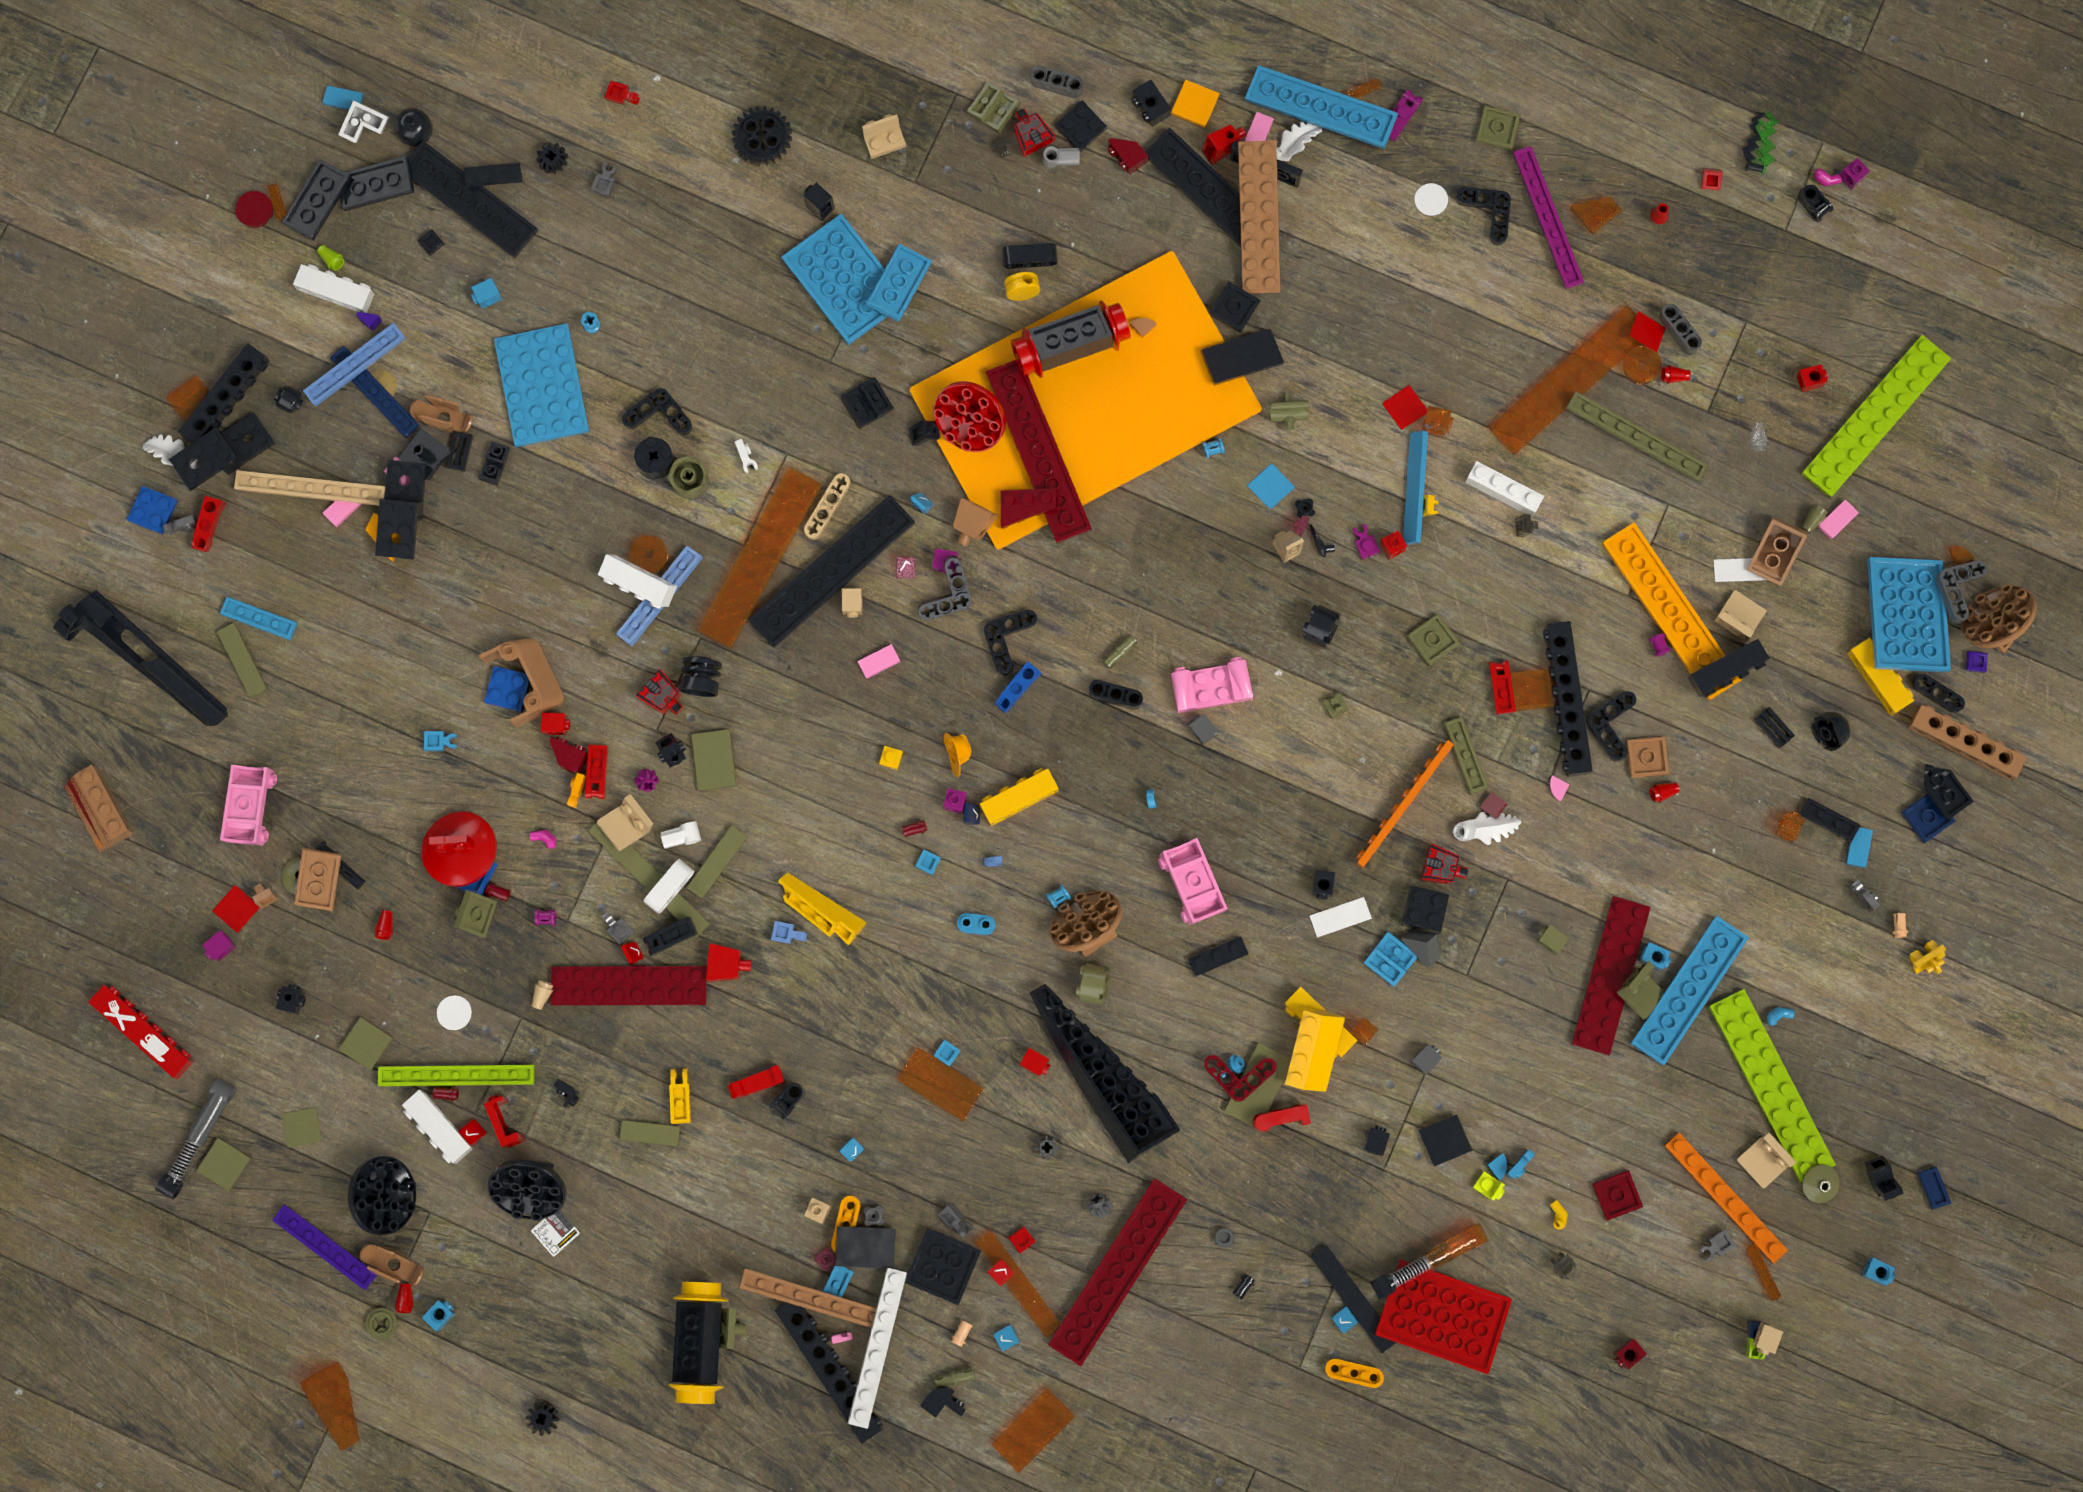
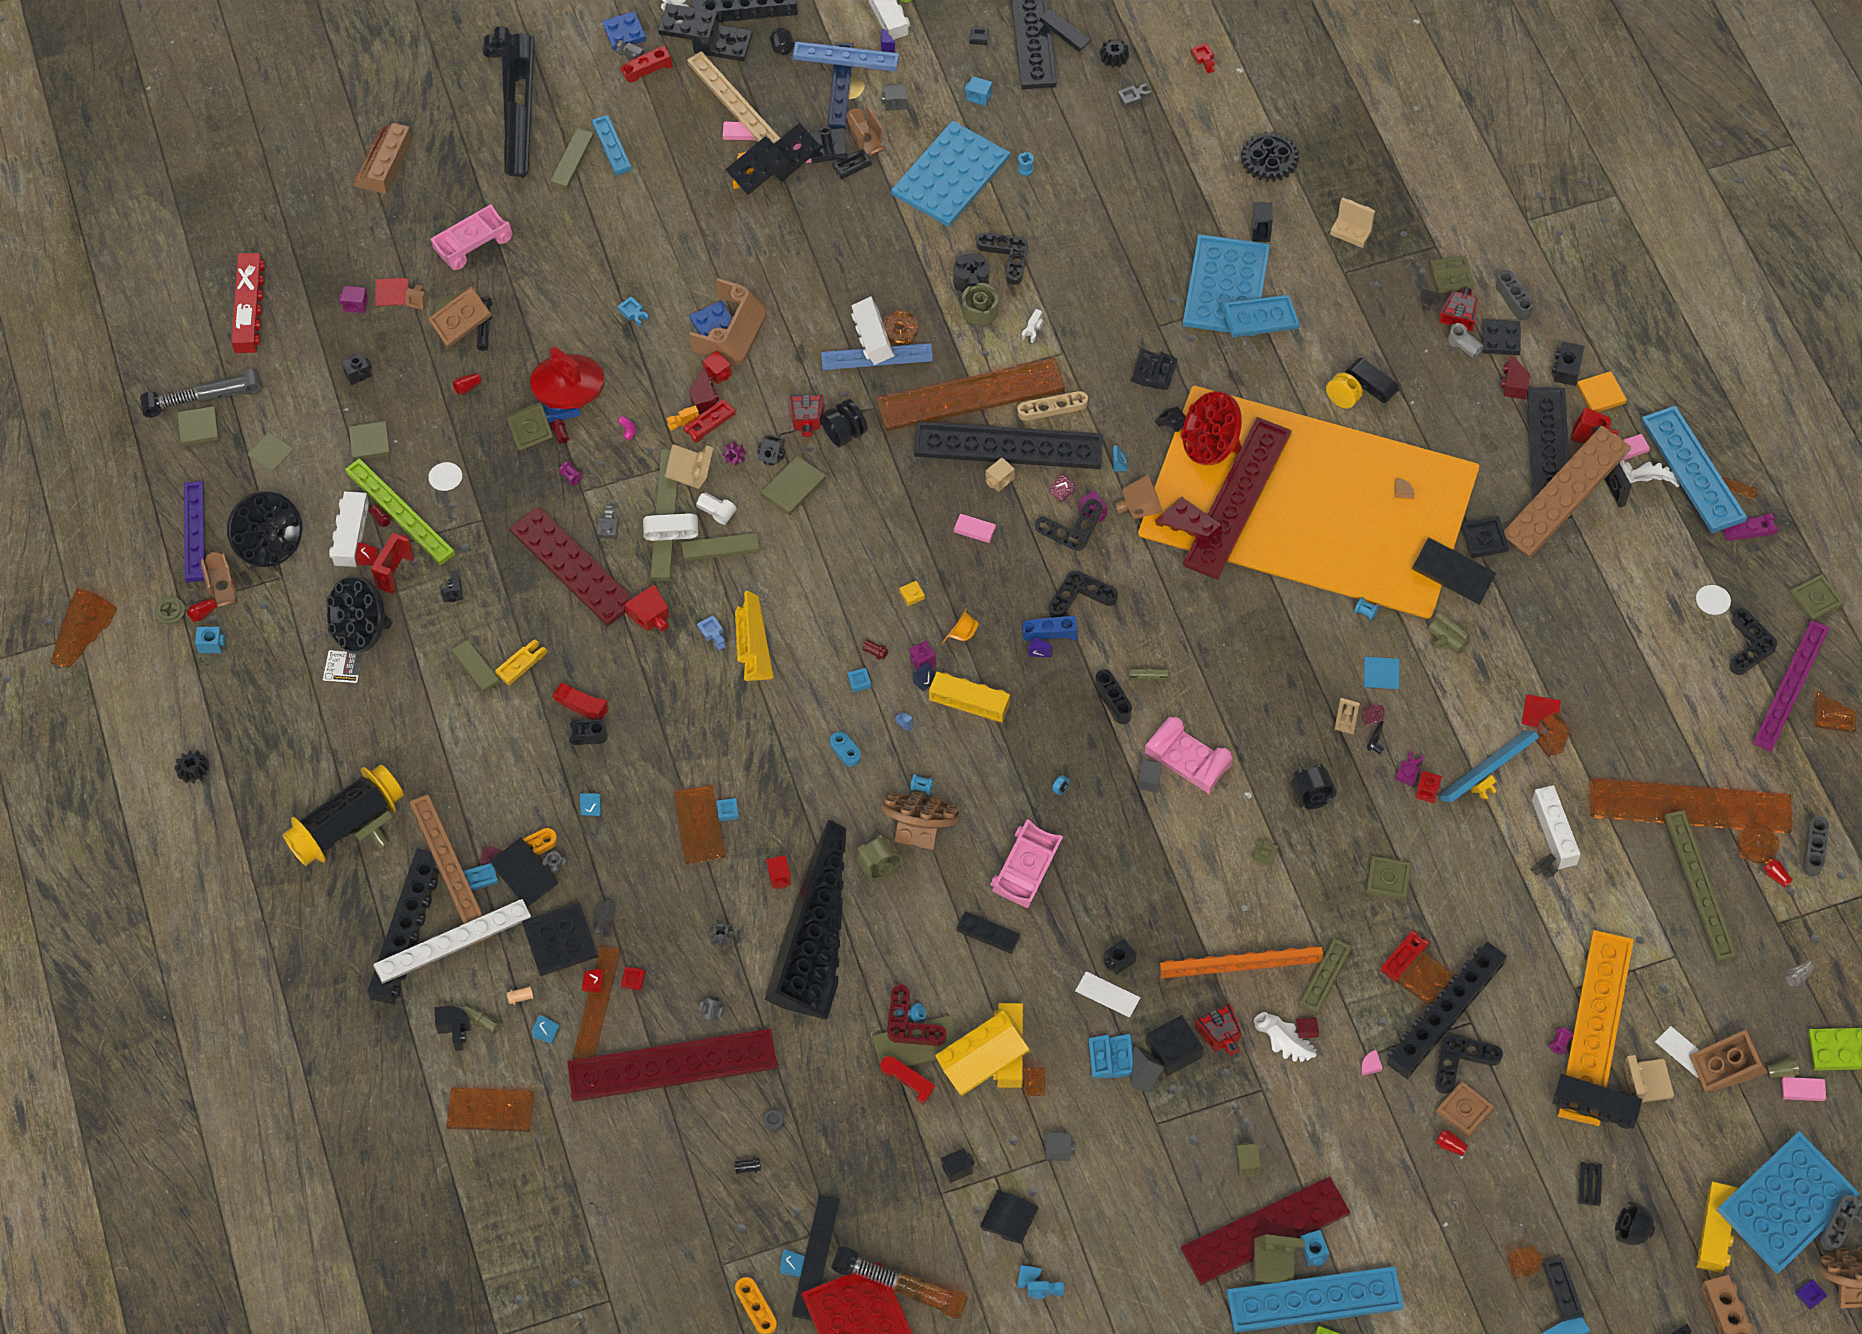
camera: 45 degrees right, 20 degrees down
(429, 362) = (894, 97): none -> dark grey brick
(494, 464) = (868, 189): black slope -> none
(541, 994) = (511, 515): tan cone -> none
(632, 952) = (598, 547): red slope -> none
(670, 936) = (635, 559): black plate -> none
(817, 1211) = (521, 818): tan brick -> none
(842, 1337) = (437, 916): bright pink tile -> none
(1026, 709) = (1040, 648): none -> dark purple slope
(1070, 338) = (1339, 443): black brick -> none
(1305, 503) = (1390, 701): black plate -> none
(1489, 1187) = (1004, 1282): neon yellow bracket -> none
(1647, 331) = (1787, 824): red sticker -> none
(1929, 681) = (1757, 1277): black beam -> none

